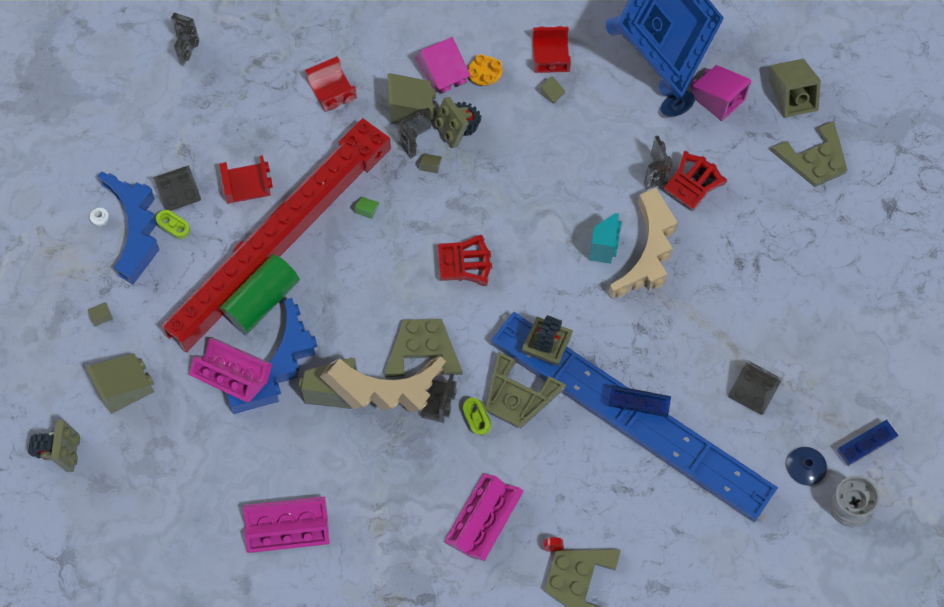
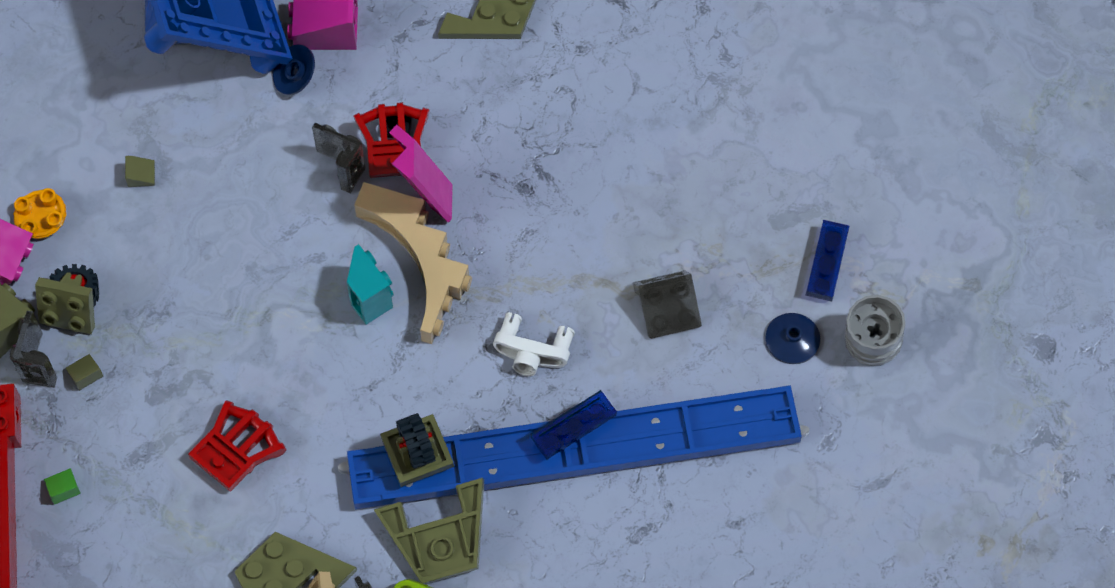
camera: 45 degrees left, 0 degrees up
(551, 49) = (91, 127): red panel -> none
(656, 348) = (530, 353): none -> white connector
(687, 207) = (423, 174): none -> dark pink slope

